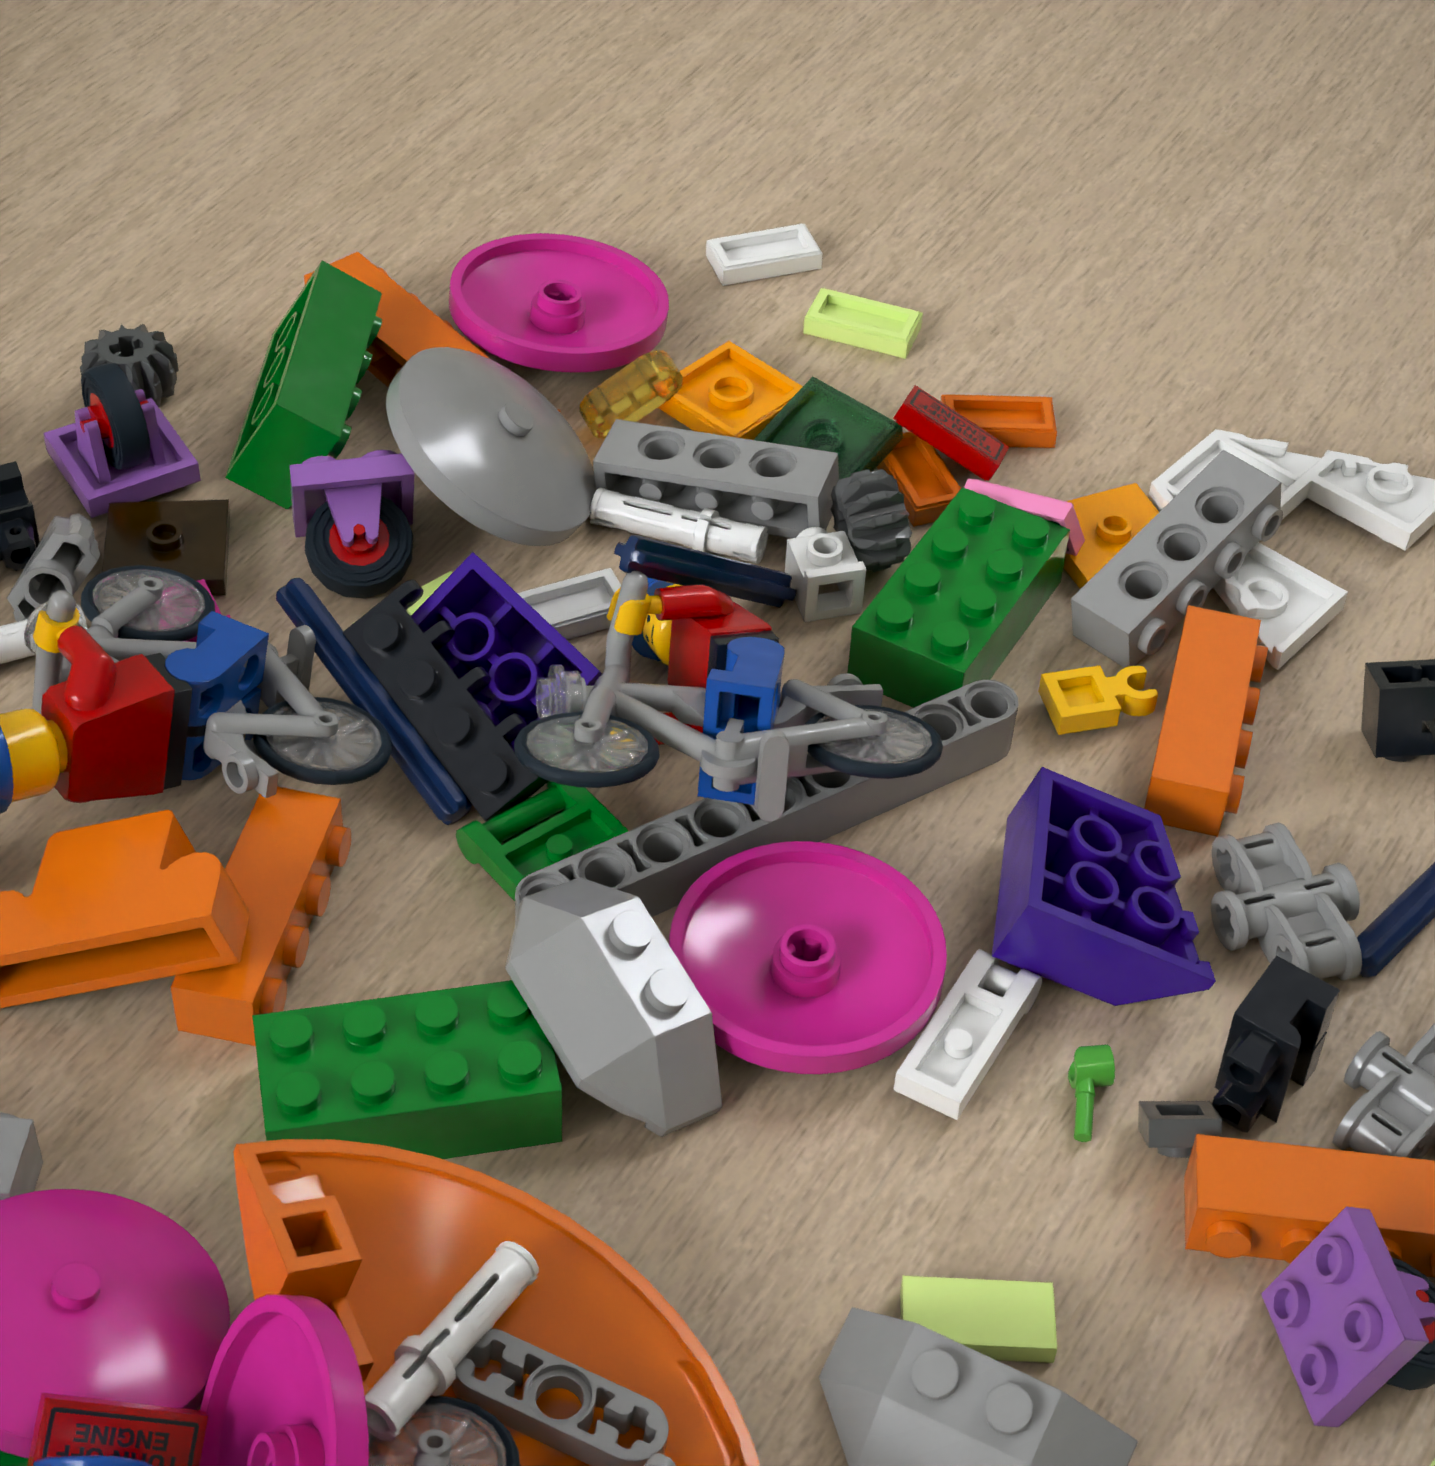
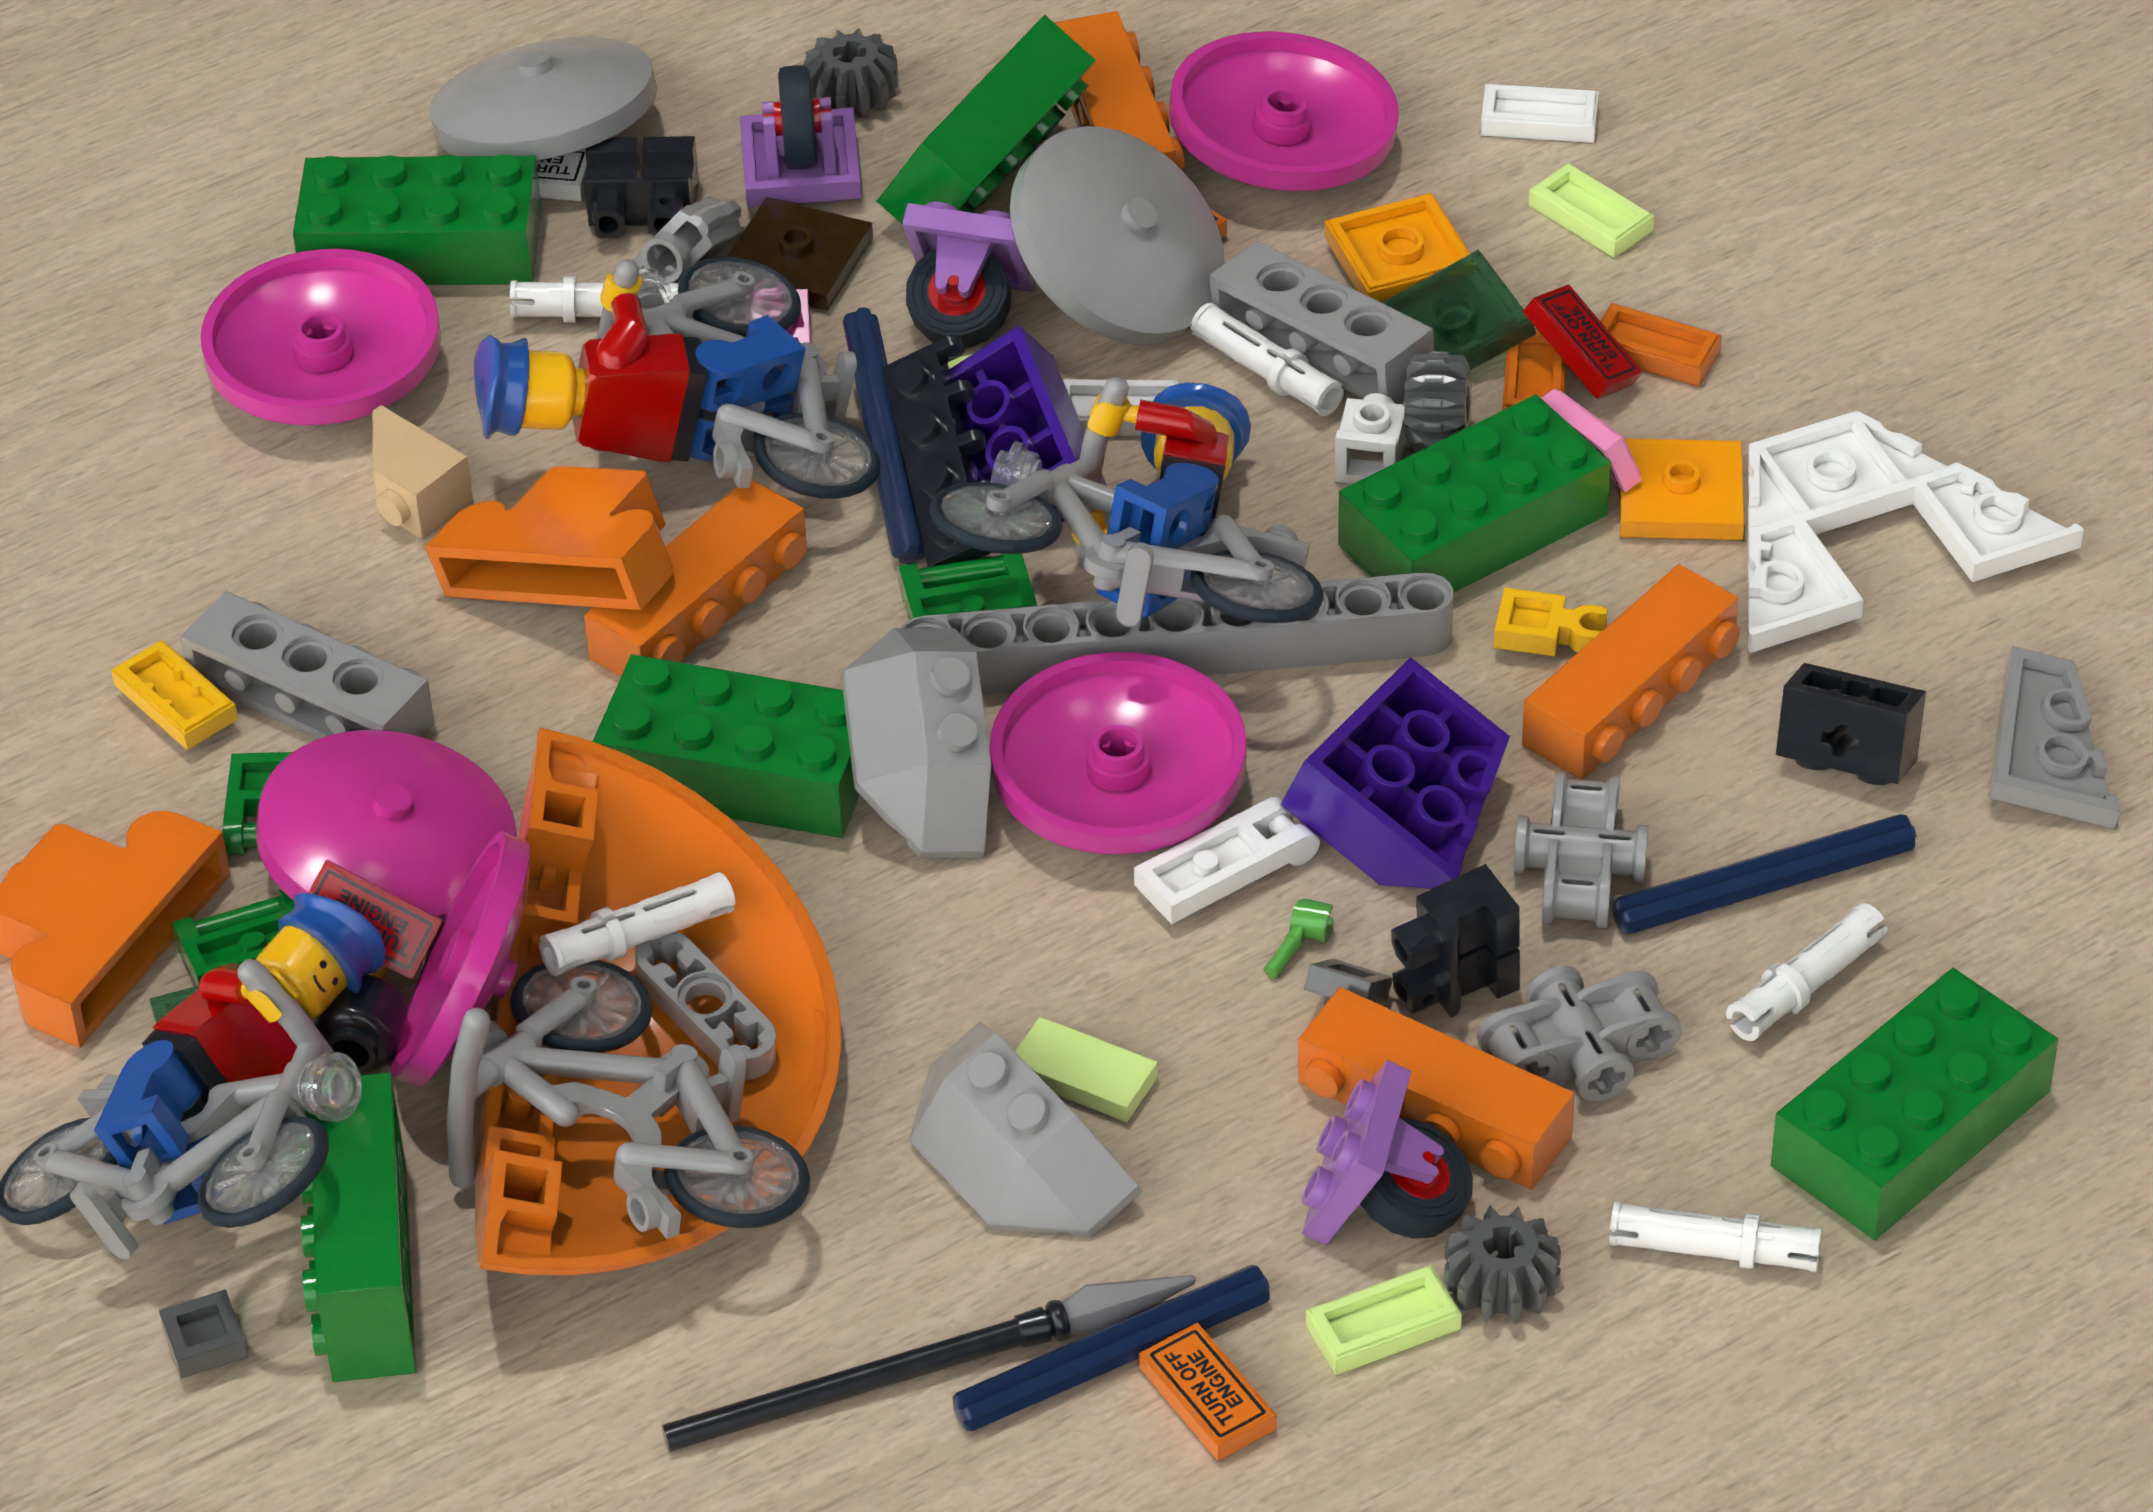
camera: 30 degrees right, 0 degrees up
(631, 392) = (1296, 218): clear yellow beam -> none
(693, 567) = (1221, 402): dark blue axle -> none
(1177, 559) = (1704, 517): light grey brick -> none

